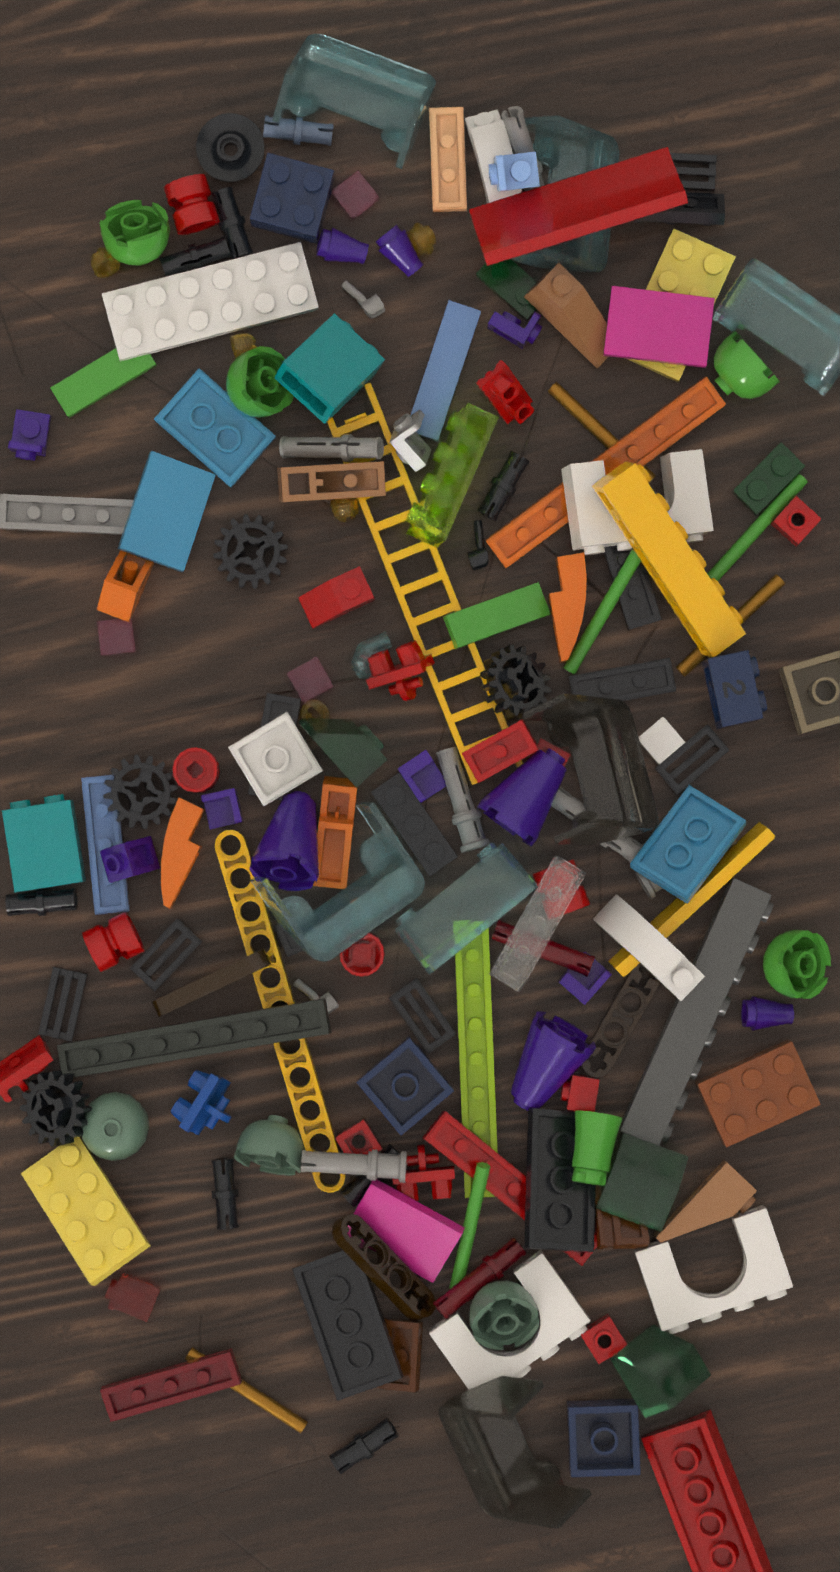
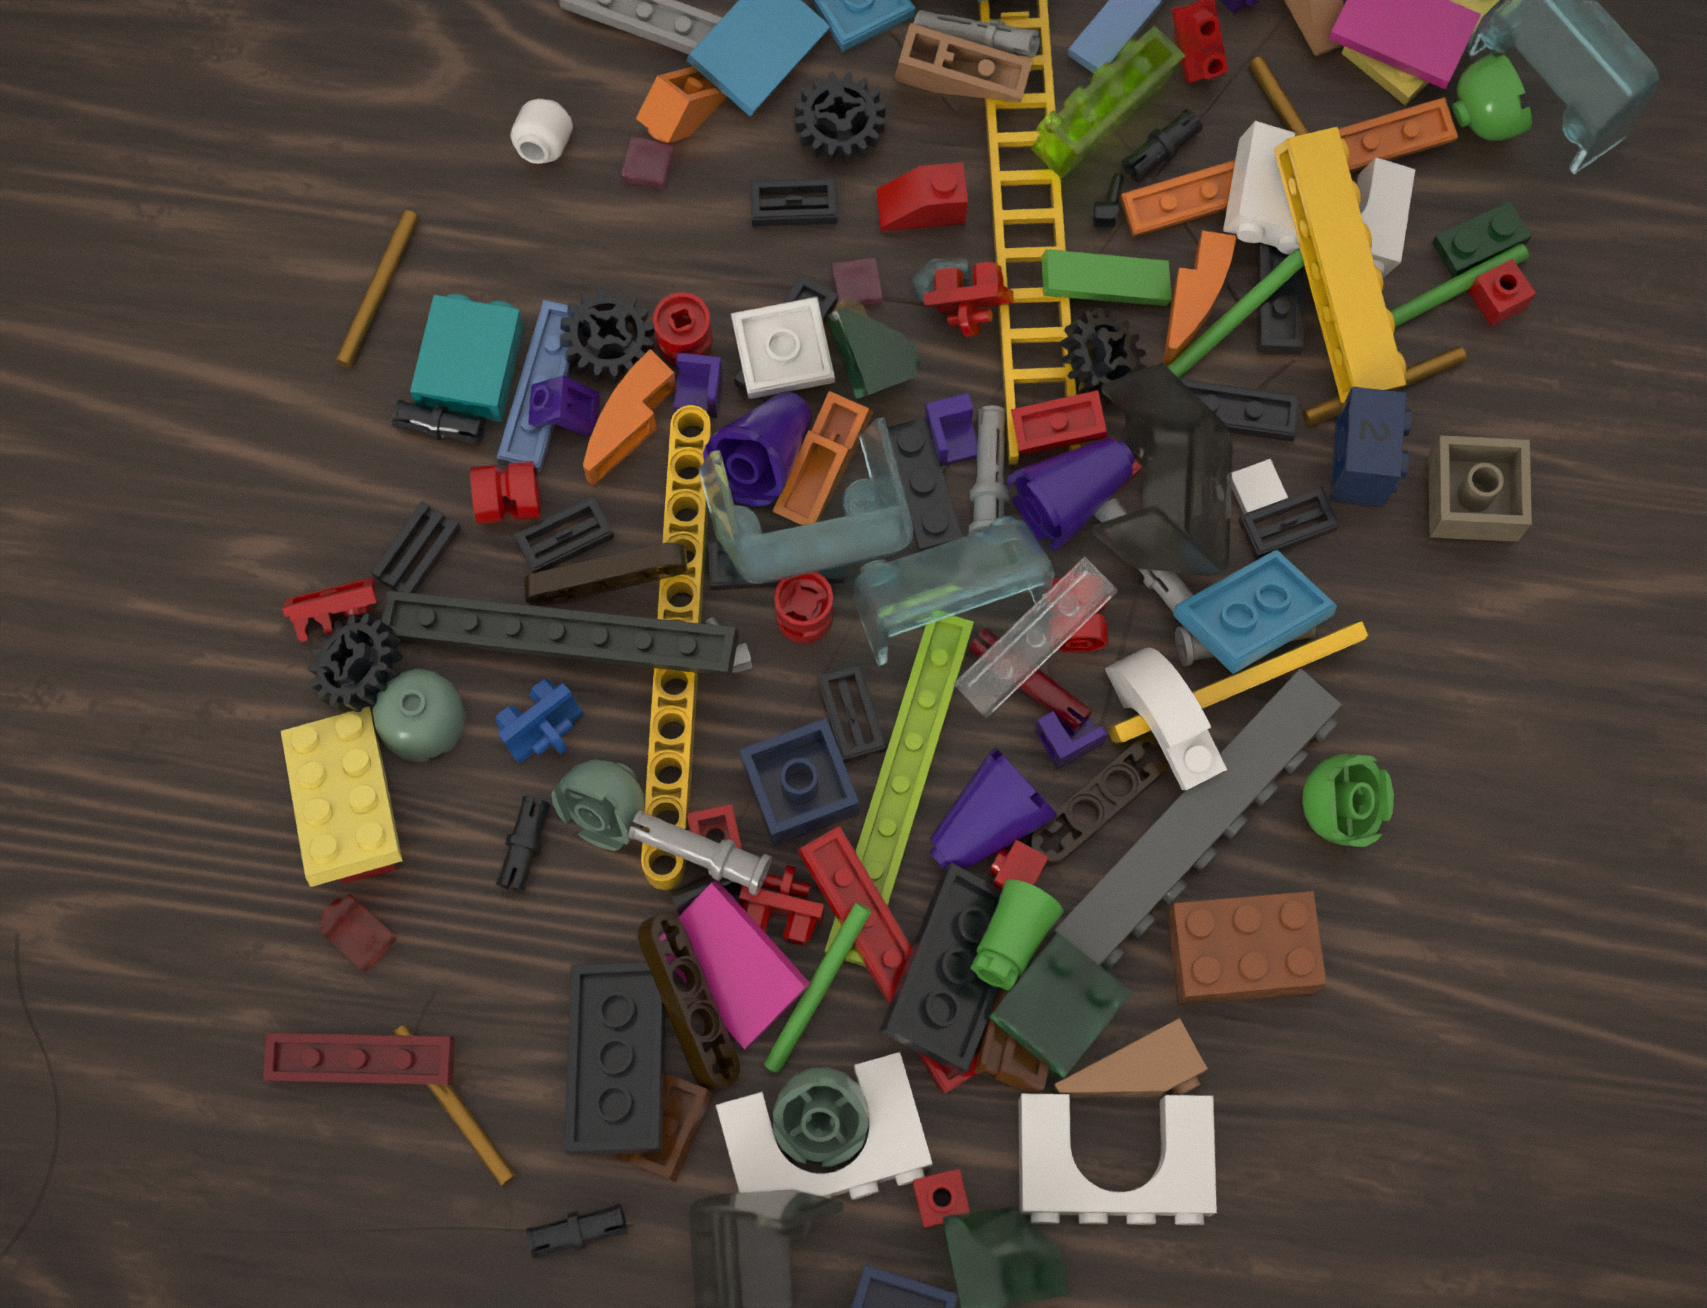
camera: 20 degrees right, 15 degrees down
(28, 643) = (541, 131): none -> white head
(266, 619) = (780, 208): none -> black tile
(344, 508) = (967, 106): clear yellow hinge -> none
(407, 442) = (1067, 61): light grey bracket -> none
(484, 1274) = (826, 1053): dark red pin -> none
(764, 1013) = (1285, 854): dark purple cone -> none

